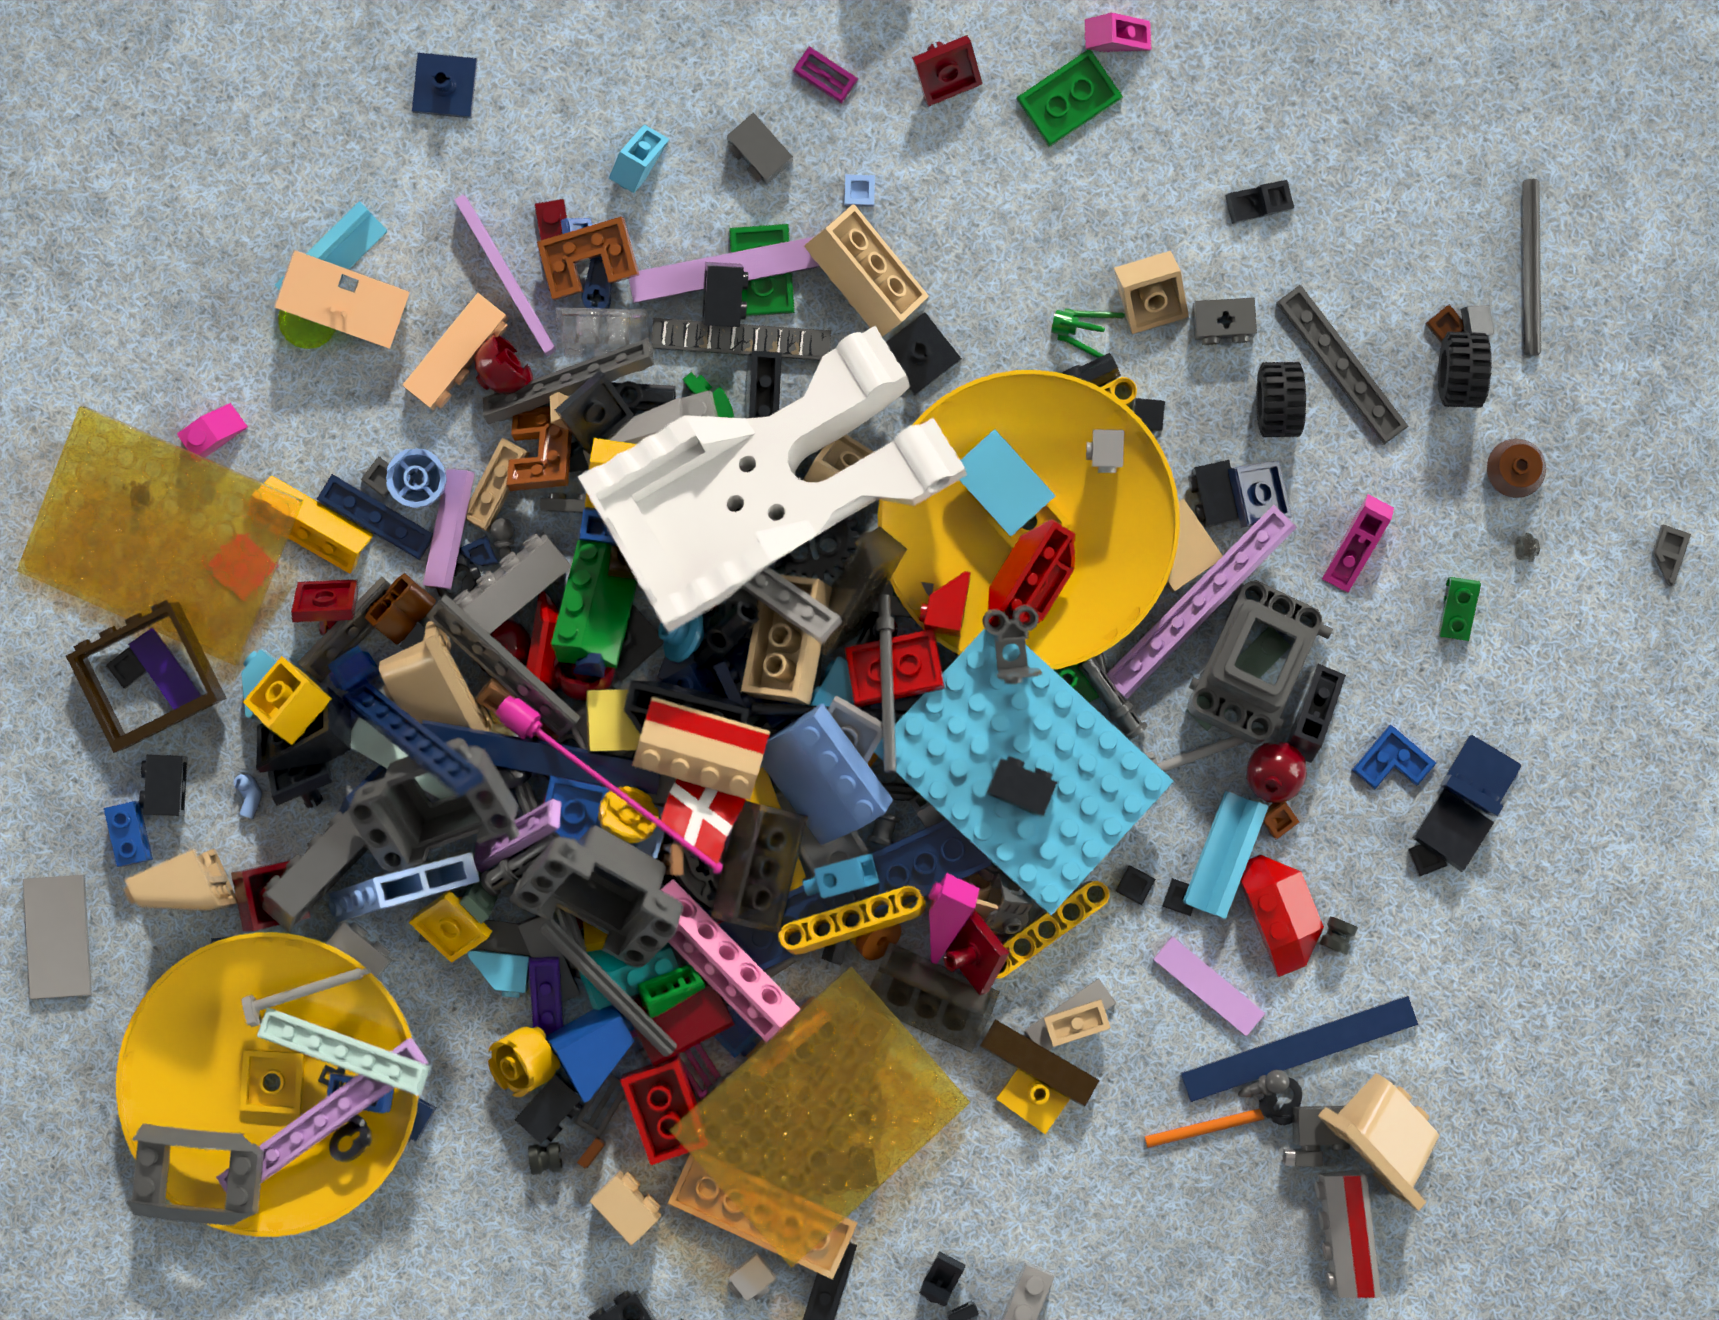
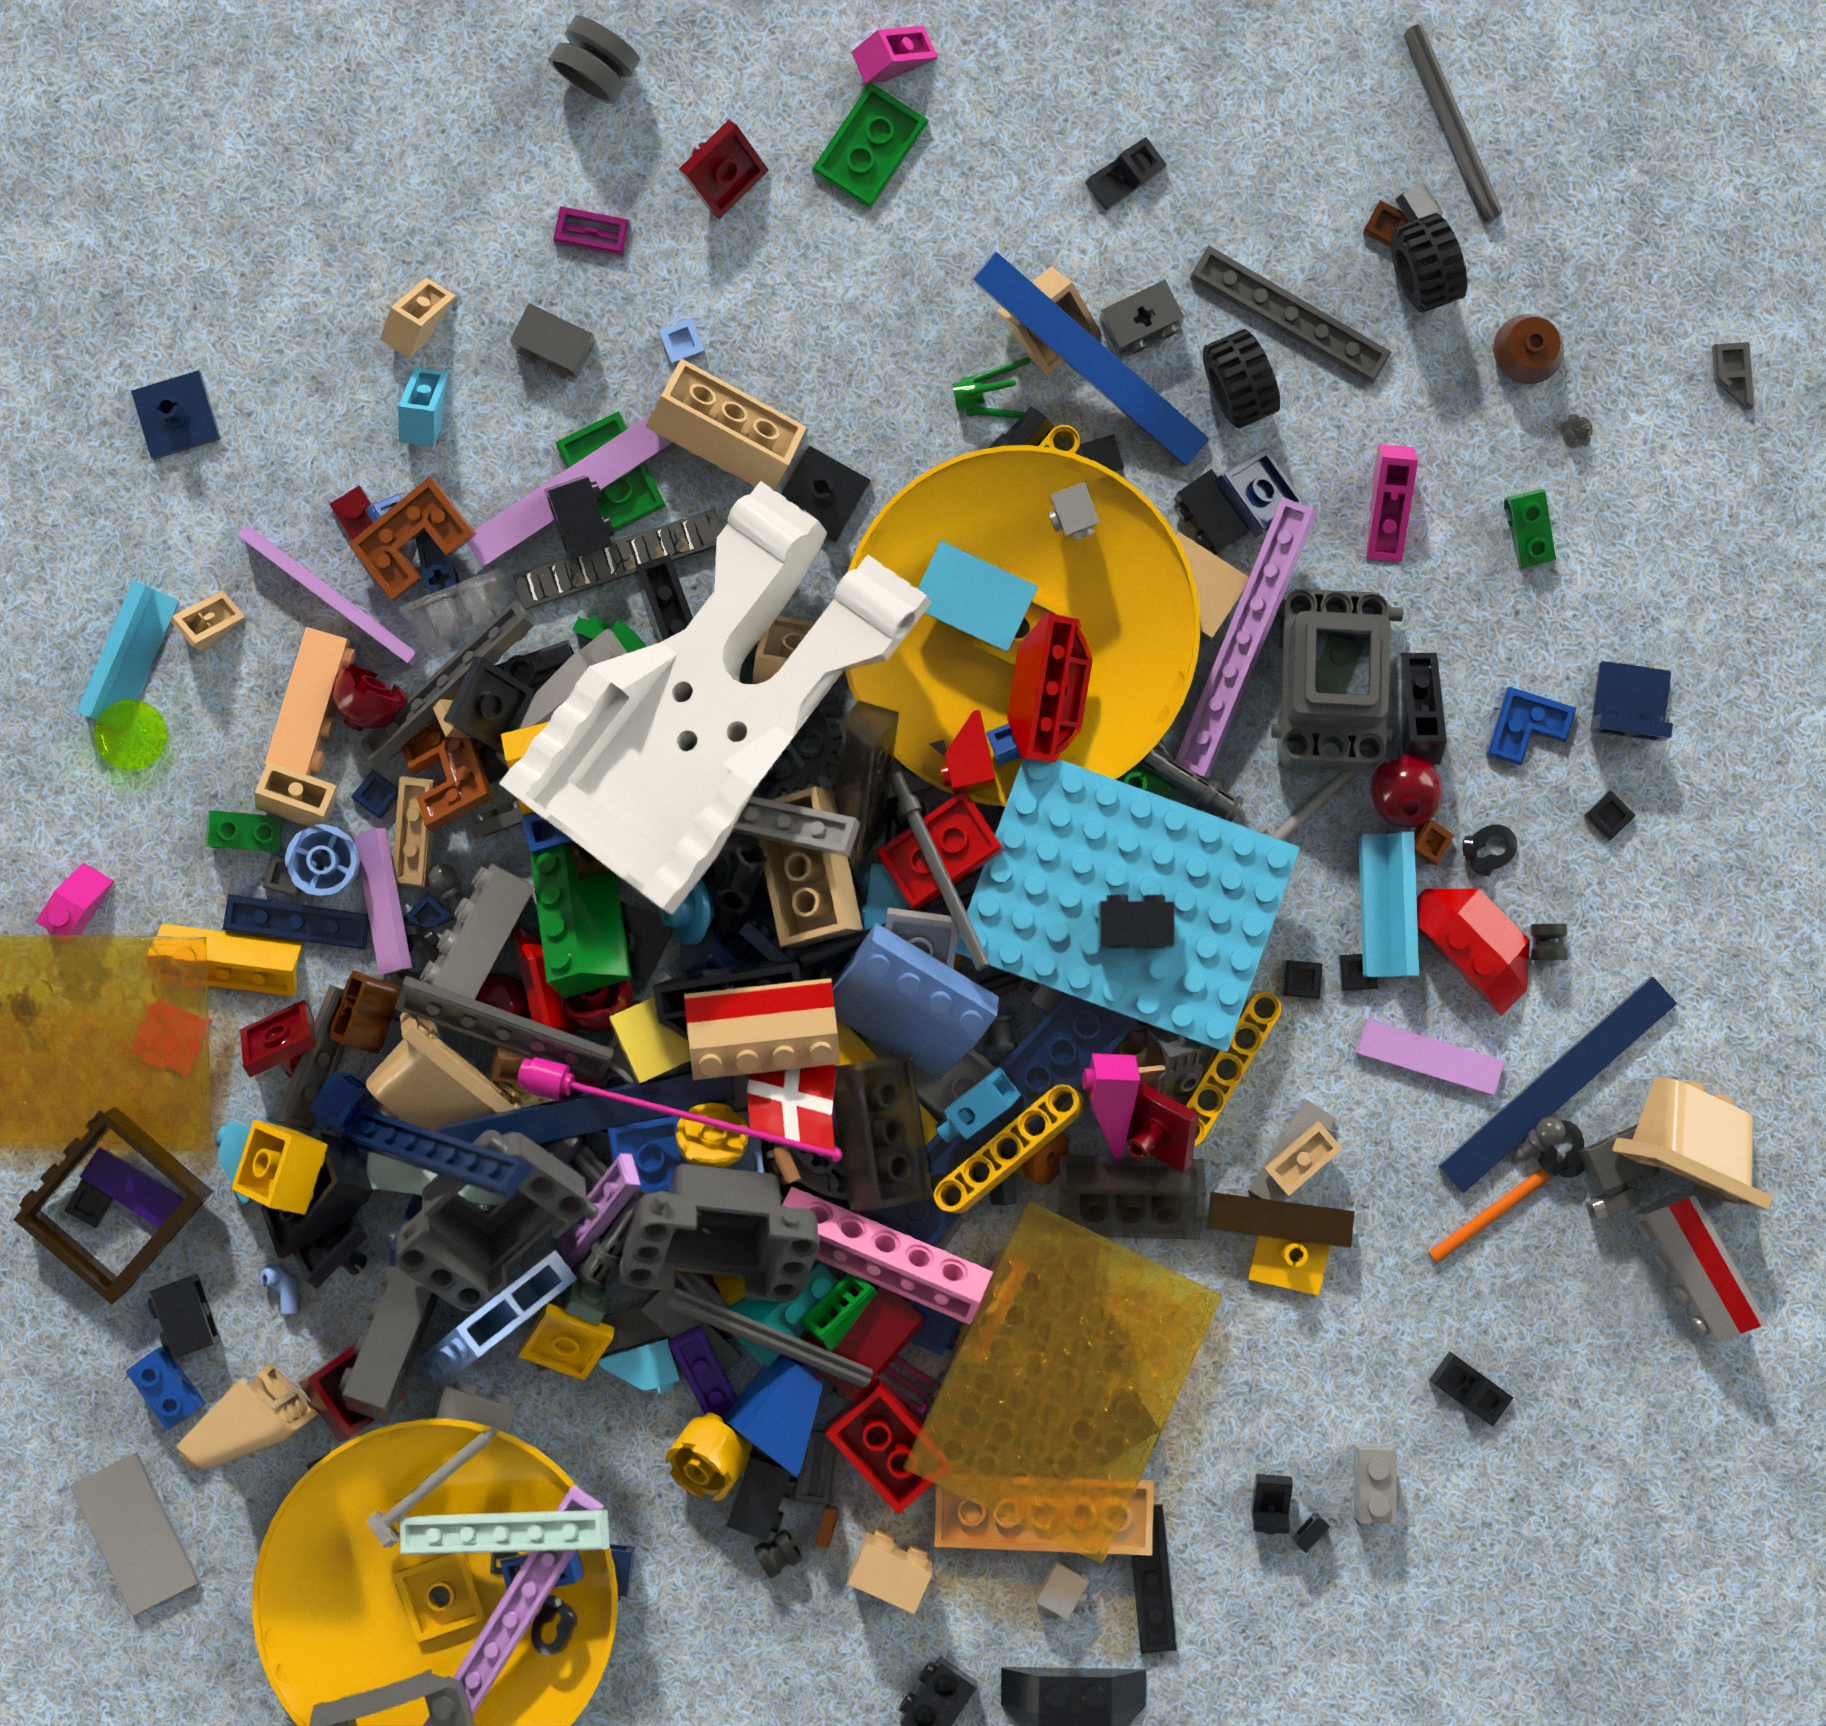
camera: 20 degrees left, 0 degrees up
(341, 299) = (157, 696): light nougat brick -> none
(364, 430) = (243, 831): none -> green plate
(404, 255) = (208, 620): none -> tan slope
(415, 419) = (295, 796): none -> tan brick
(478, 443) = (376, 794): none -> dark blue tile
(590, 666) = (602, 988): dark blue tile -> none
(662, 86) = (416, 317): none -> tan slope
(977, 606) = (1003, 744): none -> blue tile
(1012, 632) = (1054, 756): dark grey piece -> none
(1133, 1255) = (1471, 1388): none -> black slope
(1170, 335) = (1090, 358): none -> blue tile
(1311, 835) = (1486, 865): none -> black piece
(1453, 830) = (1626, 774): black tile -> none

